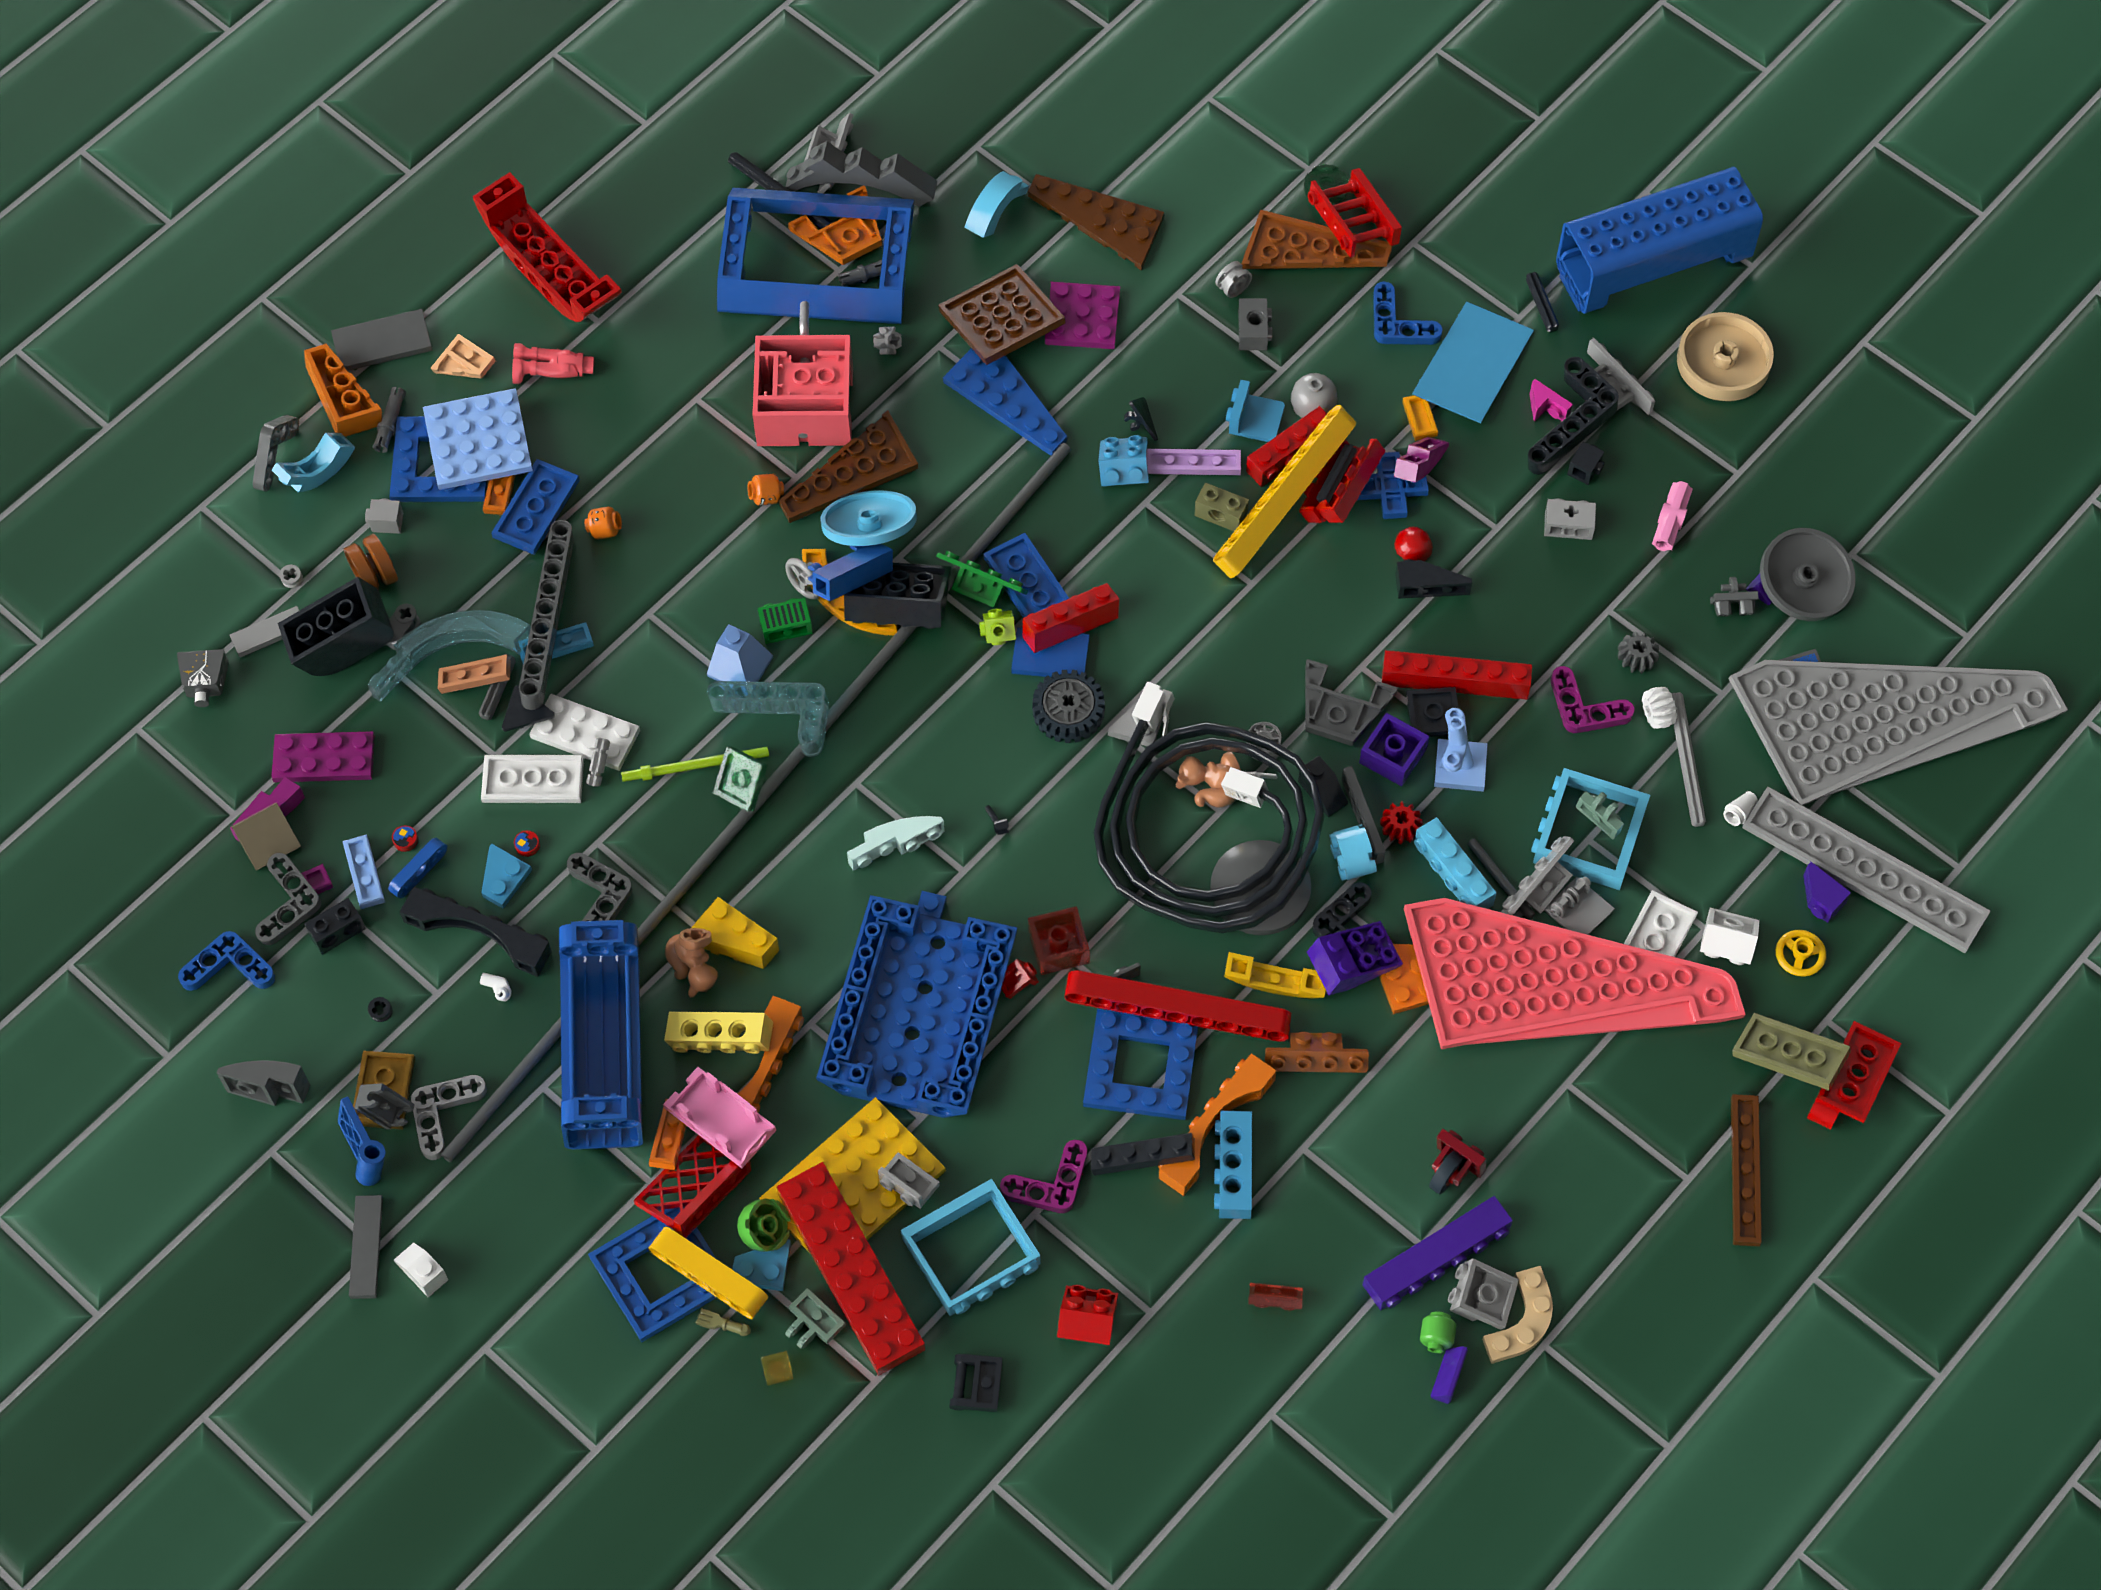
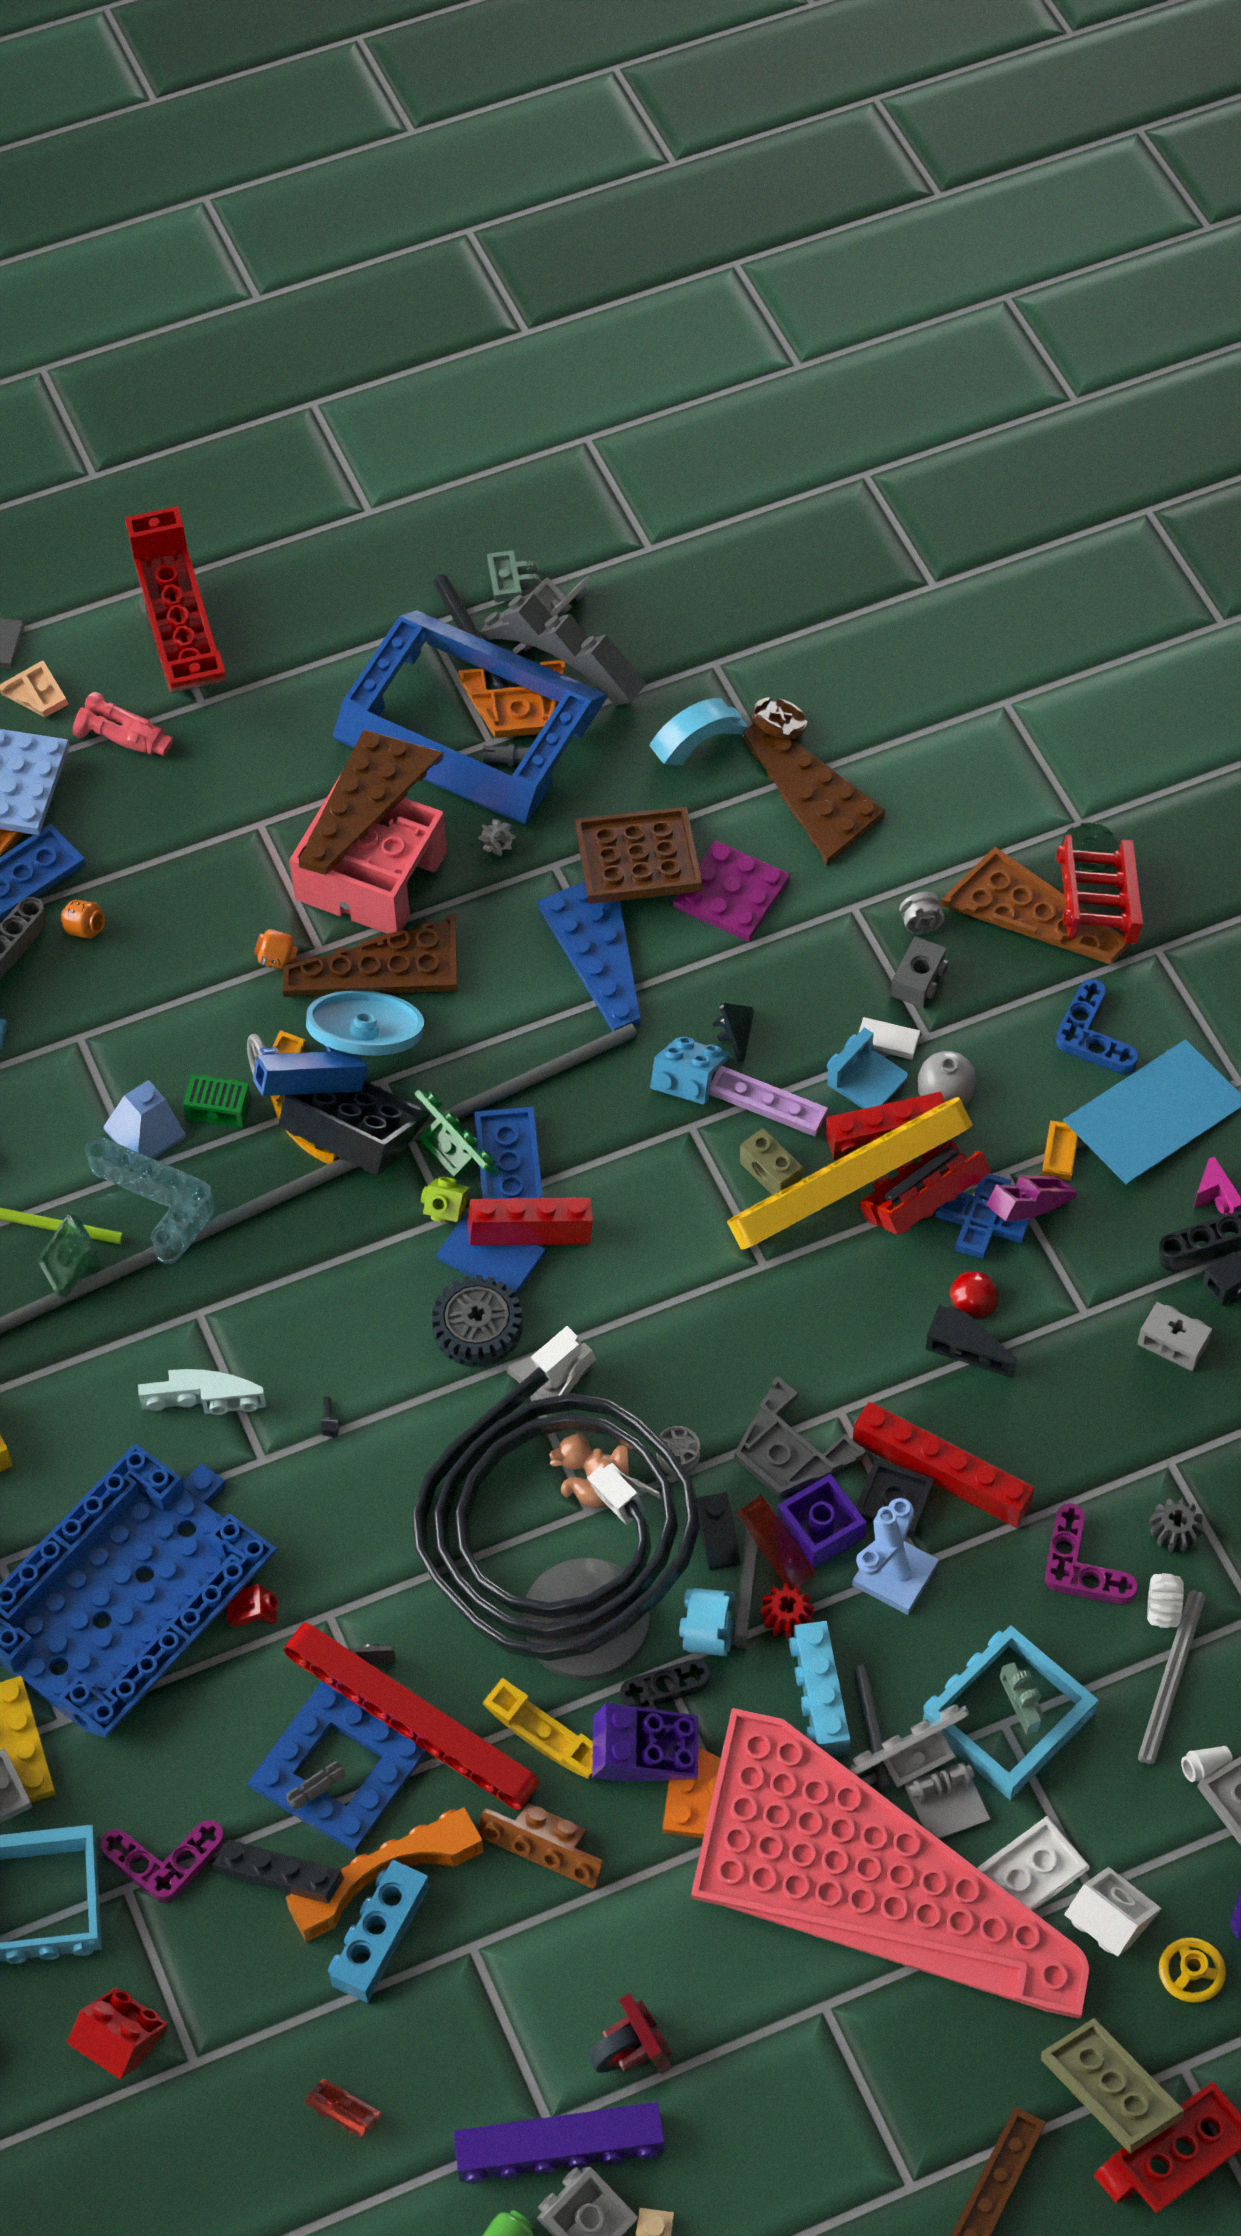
camera: 25 degrees right, 5 degrees down
(785, 135) = (505, 577): none -> sand green hinge
(785, 337) = (366, 792): none -> reddish brown wing
(1050, 170) = (779, 718): none -> reddish brown tile
(1058, 940) = (318, 1583): clear red brick -> none
(1136, 1083) = (315, 1785): none -> dark grey axle
(1260, 380) = (892, 1038): none -> white tile
(1370, 777) = (775, 1542): none -> clear red tile

